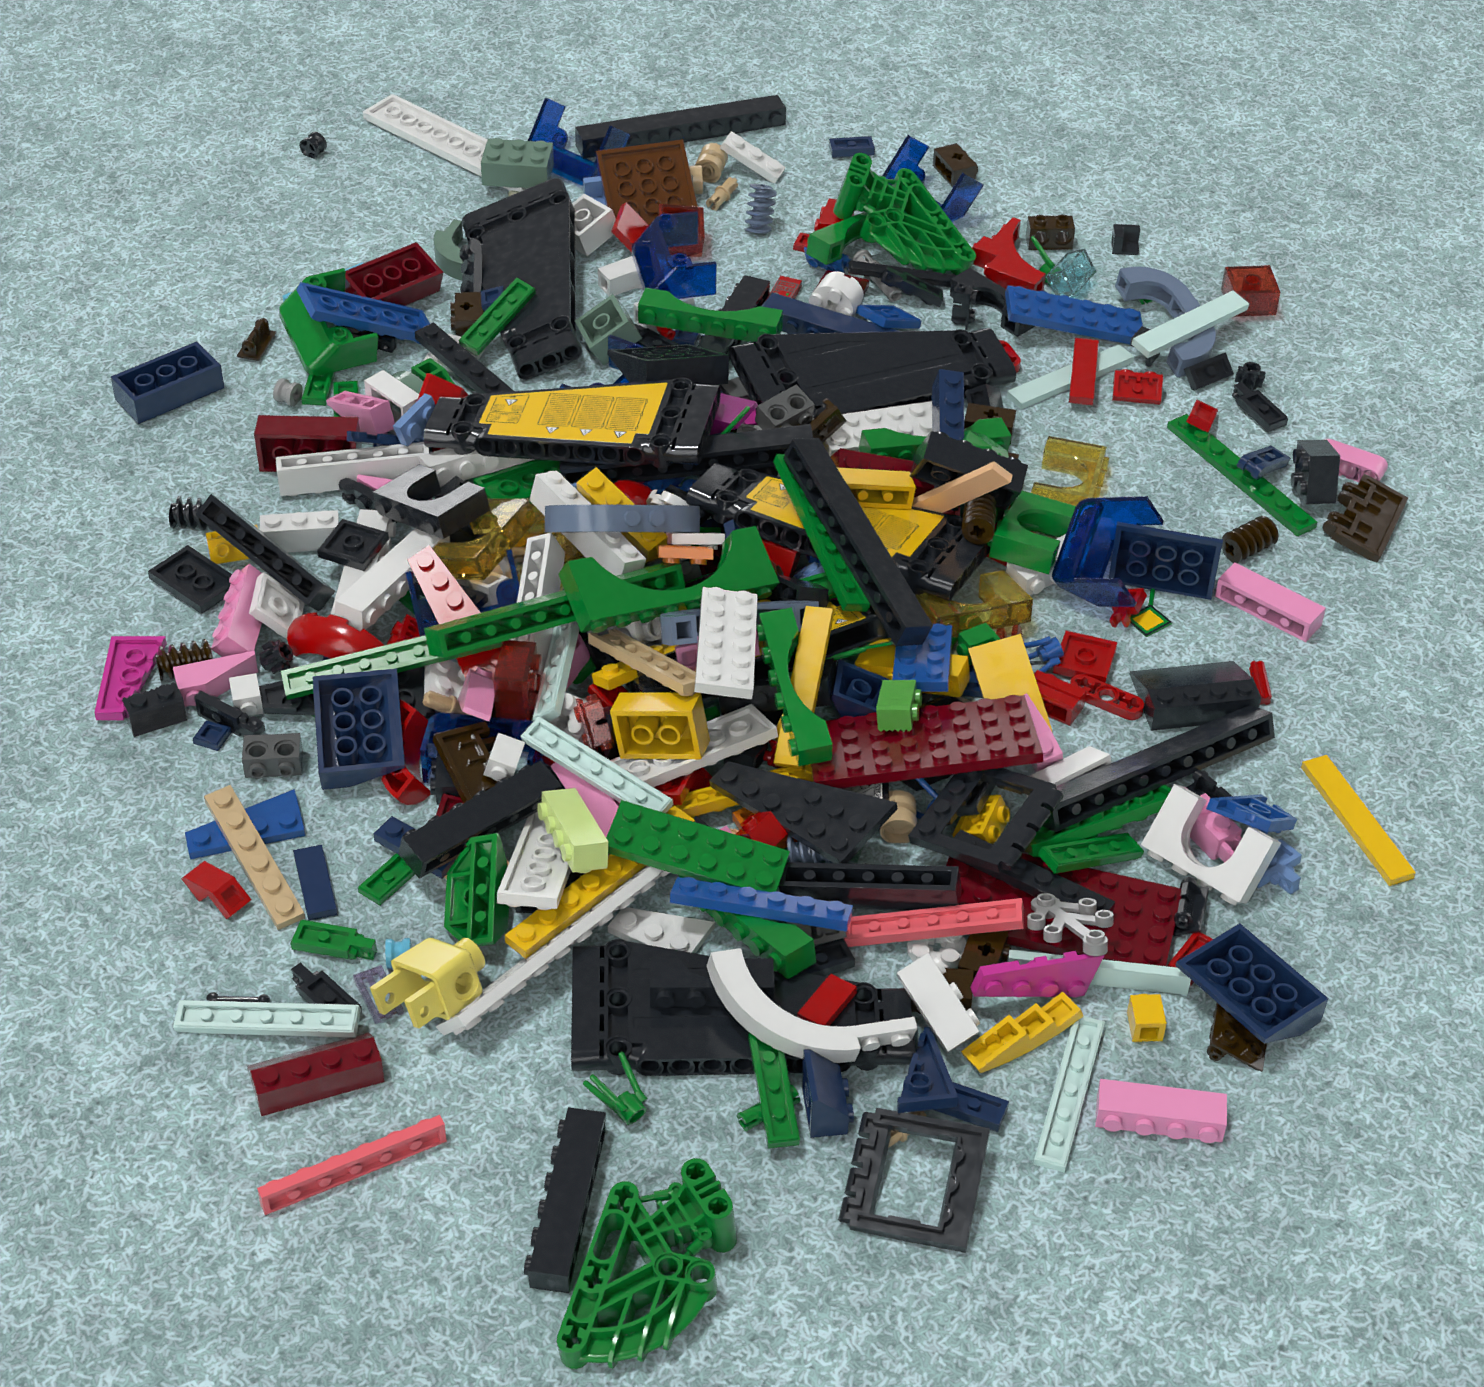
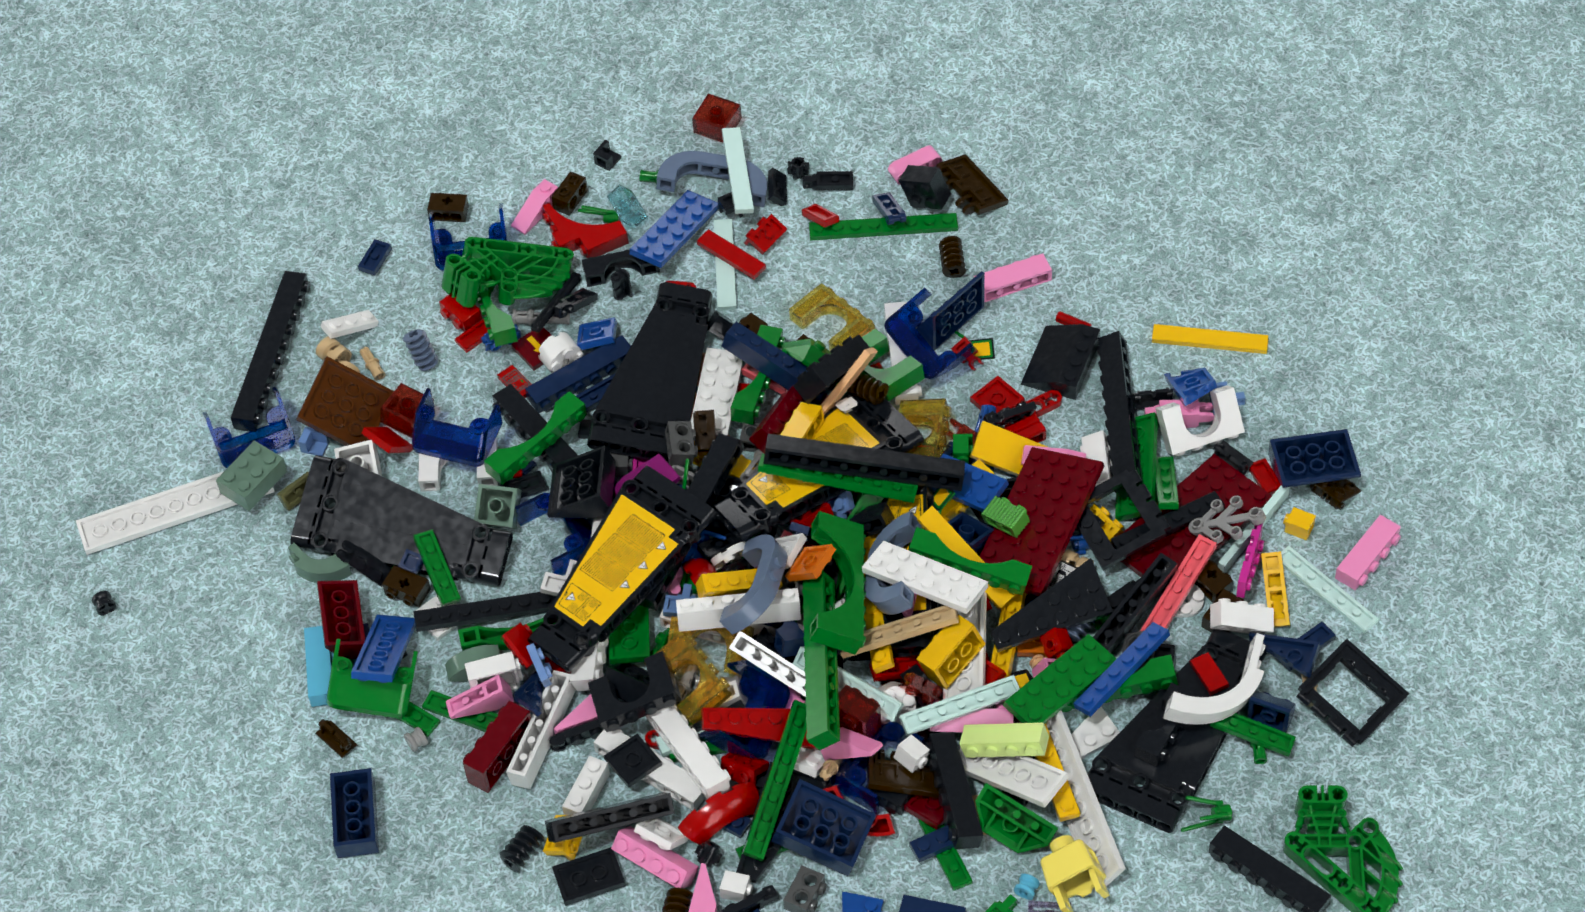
camera: 55 degrees left, 10 degrees up
(944, 516) = (843, 404): none -> white piece
(995, 219) = (532, 209): none -> bright pink slope
(1059, 664) = (1011, 415): none -> black hinge

